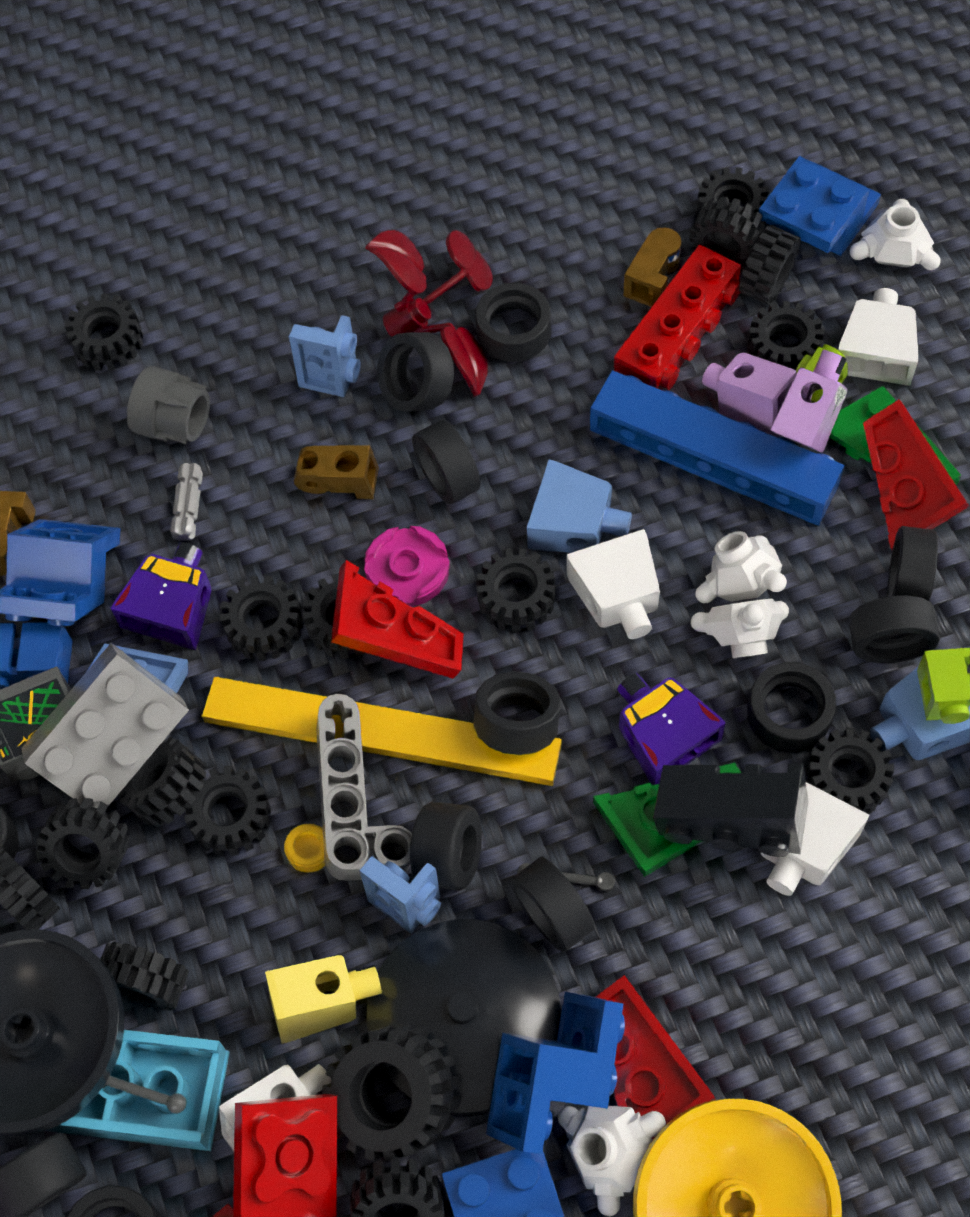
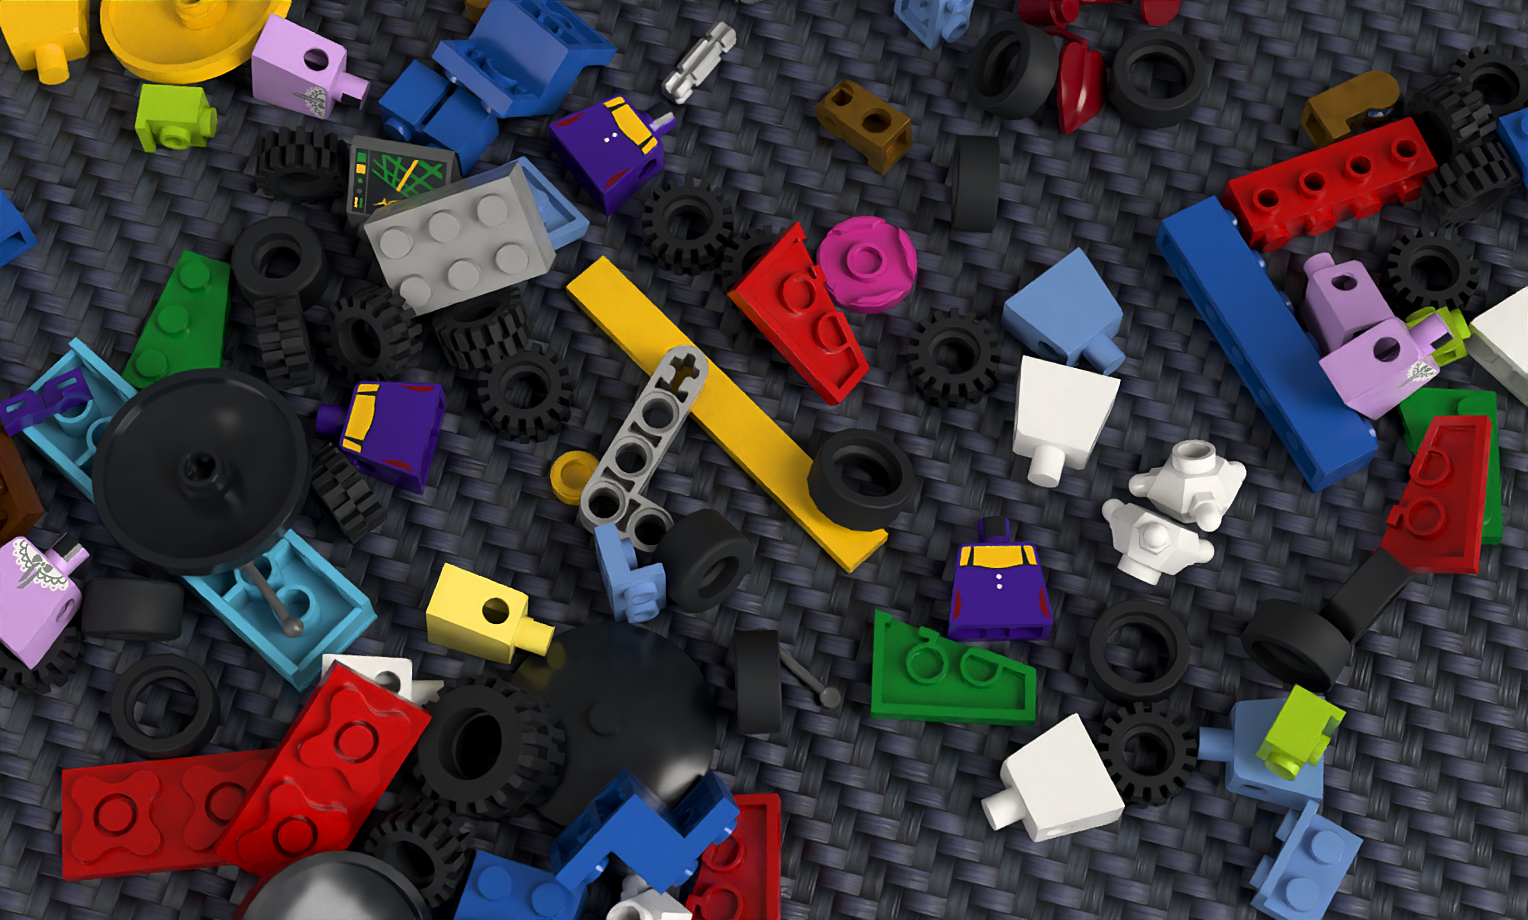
camera: 30 degrees right, 5 degrees up
(141, 906) = (388, 430): none -> dark purple torso
(733, 808) = (991, 708): black wedge -> none

